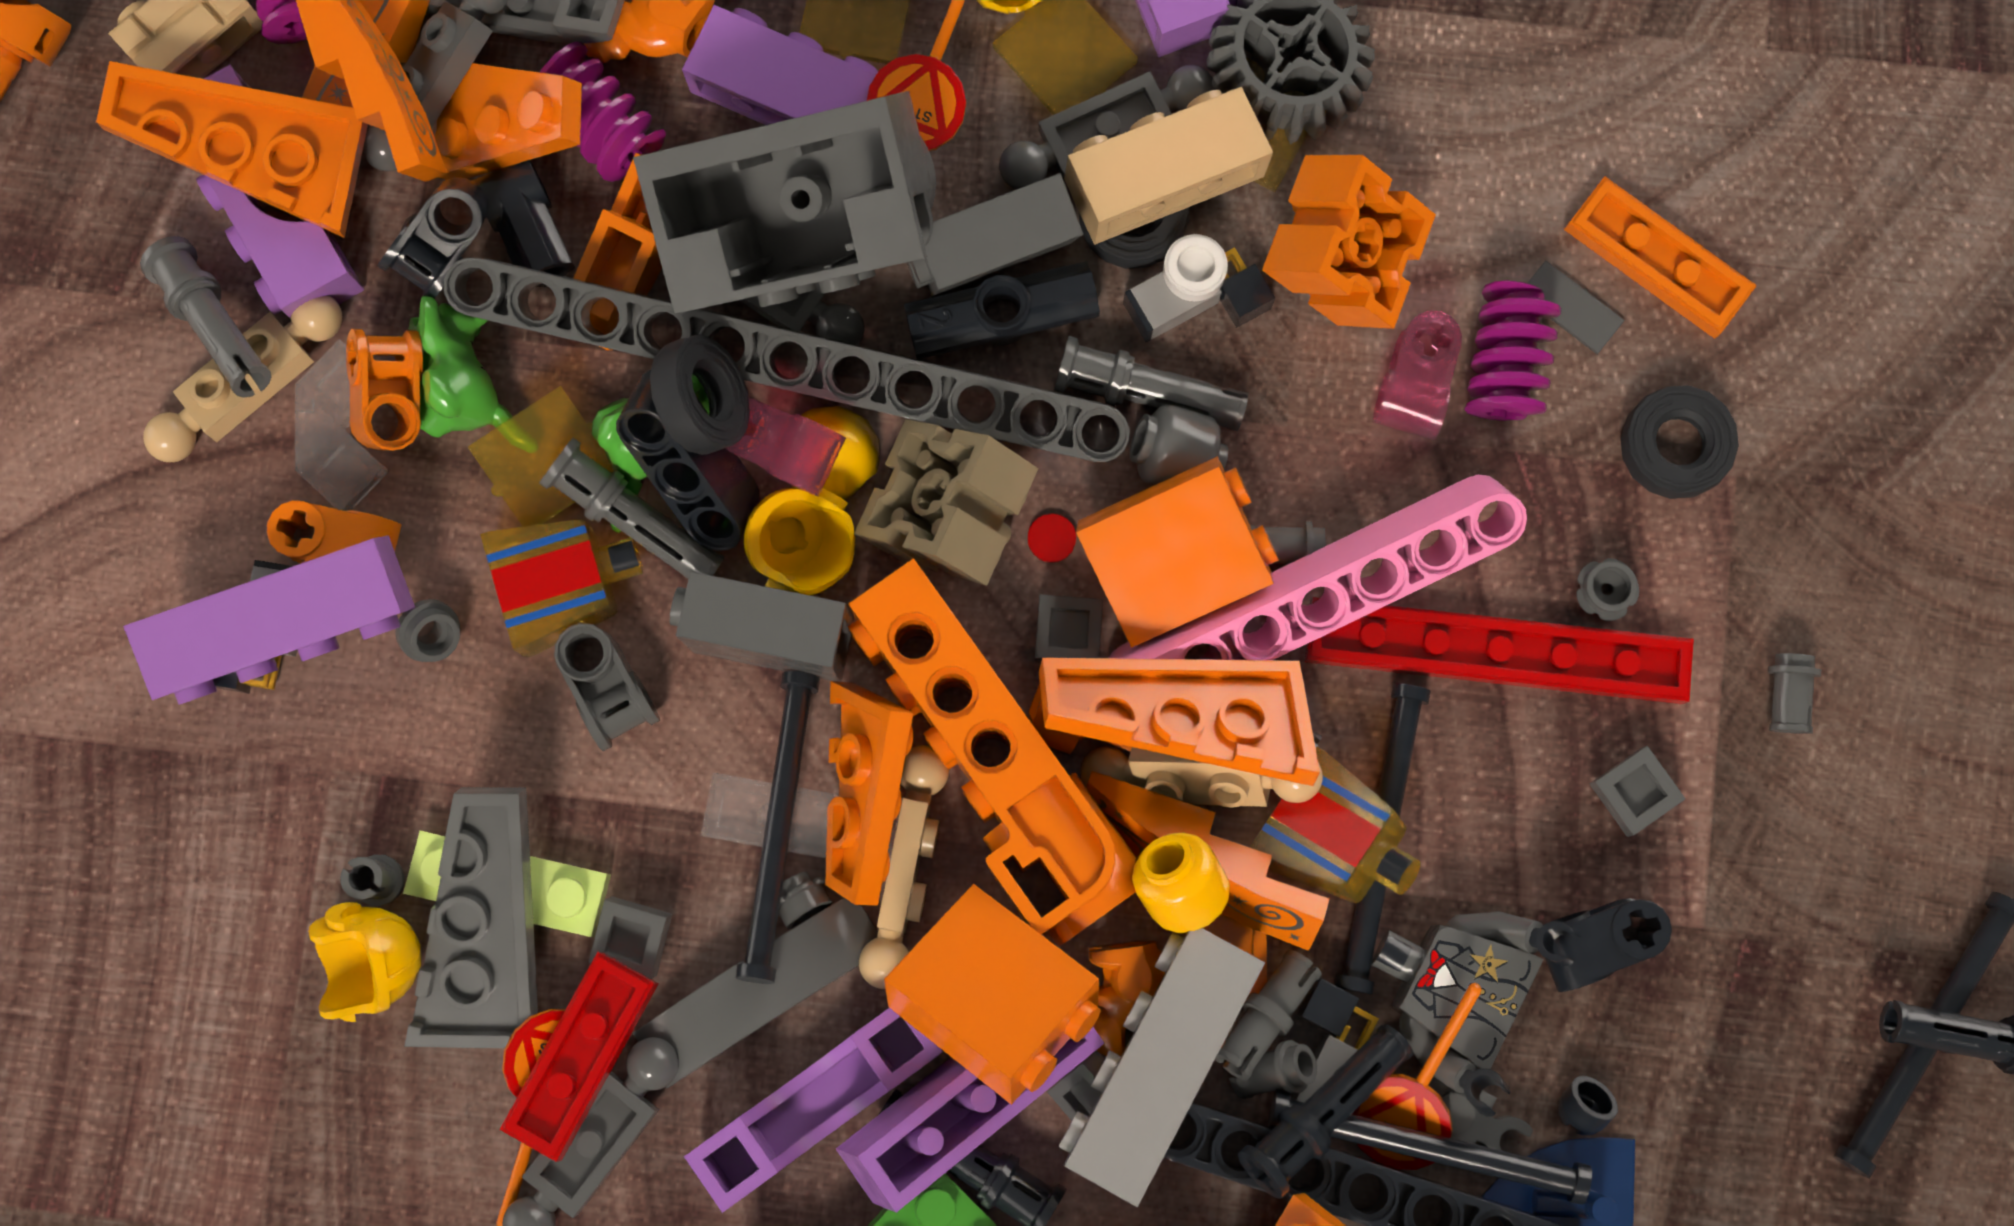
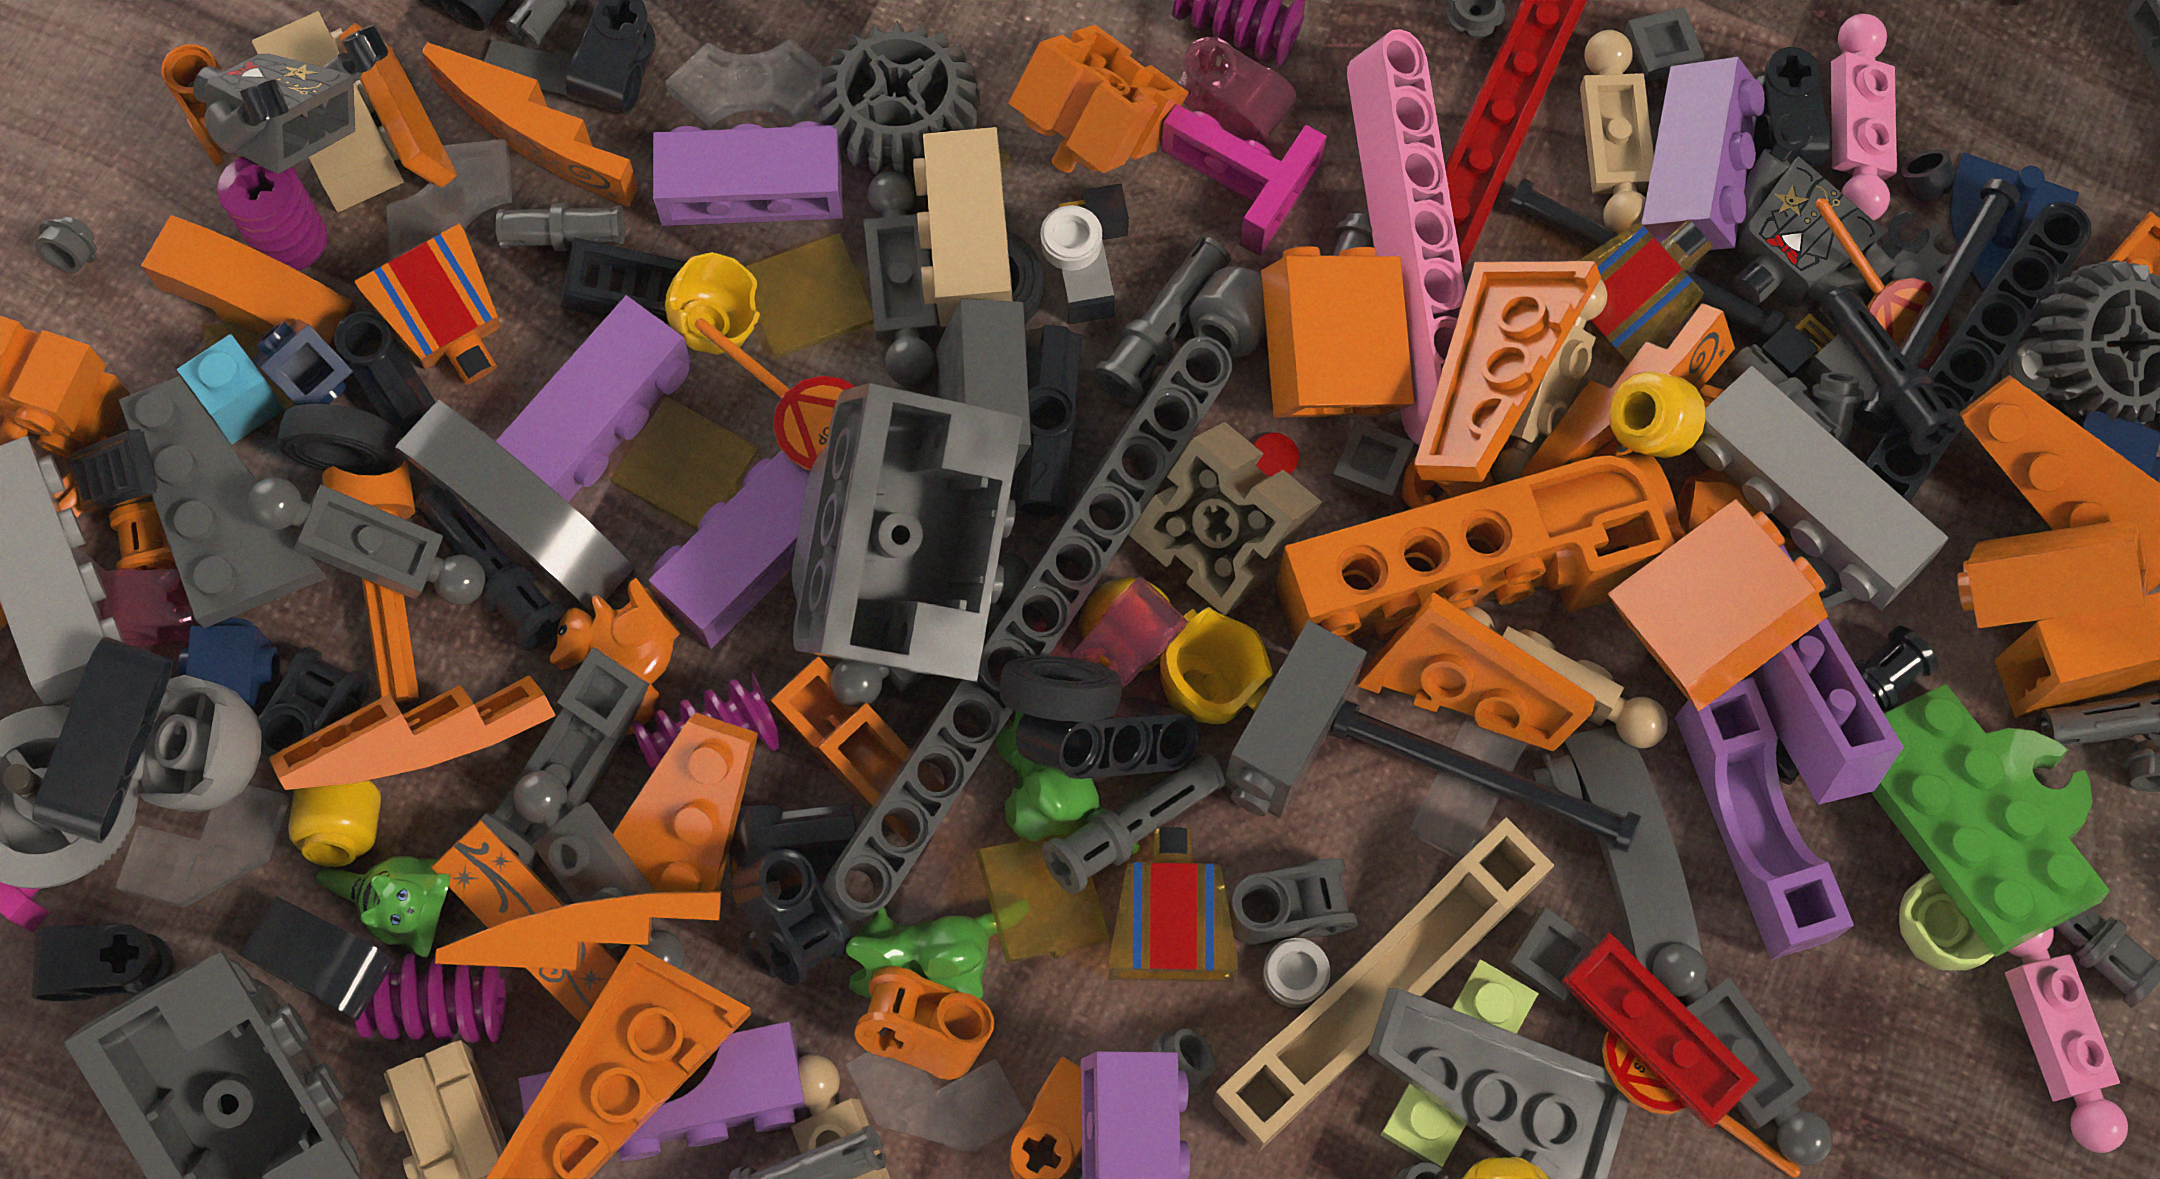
camera: 75 degrees left, 10 degrees down
(546, 710) = (1296, 972): none -> white tile
(557, 791) = (1410, 957): none -> tan arch
(1342, 417) = (1246, 168): none -> dark pink bracket
(1515, 861) = (1704, 150): none -> medium lavender brick
(1516, 771) = (1616, 129): none -> tan plate
(1630, 1021) = (1864, 114): none -> bright pink plate

